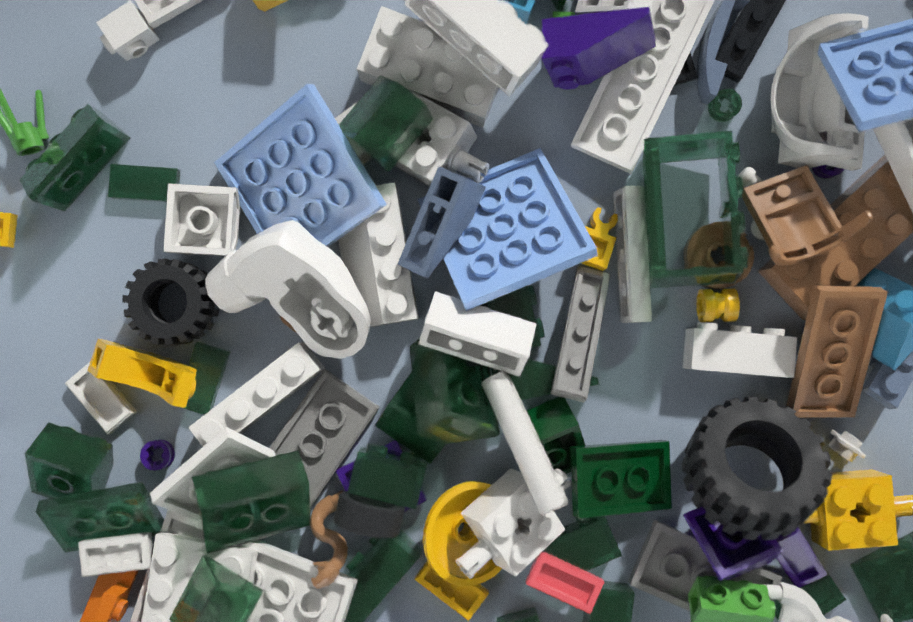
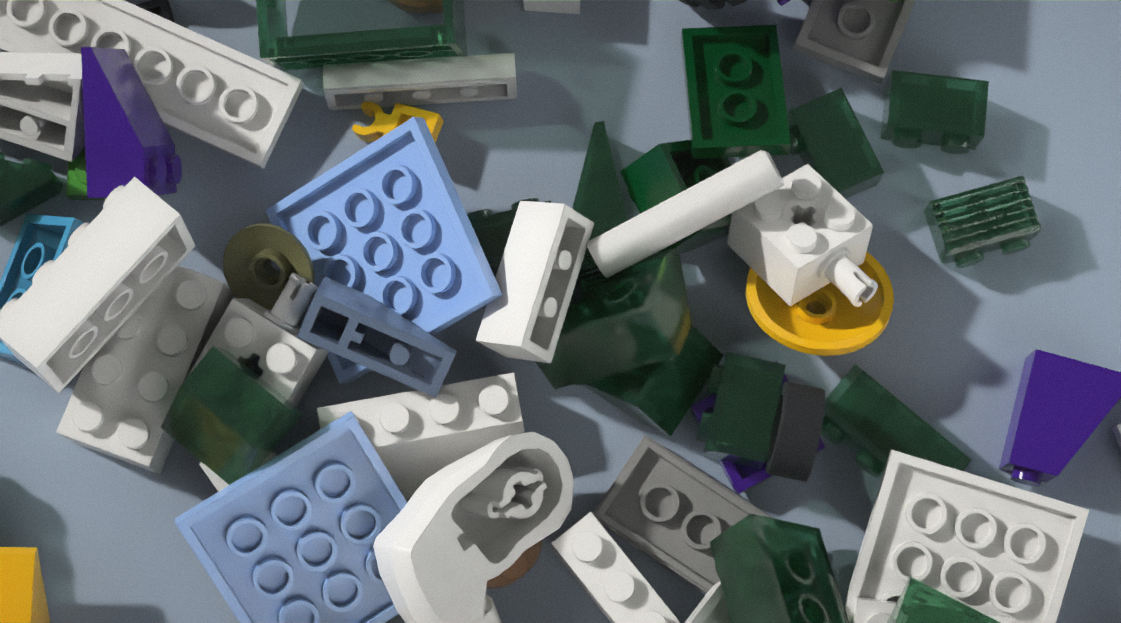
camera: 90 degrees left, 10 degrees down
(328, 570) = (876, 486): medium nougat animal -> none
(462, 599) = (911, 313): yellow plate -> none
(499, 145) = (249, 265): none -> olive dish
(564, 582) = (880, 162): coral tile -> none
(580, 334) = (533, 147): light grey tile -> none

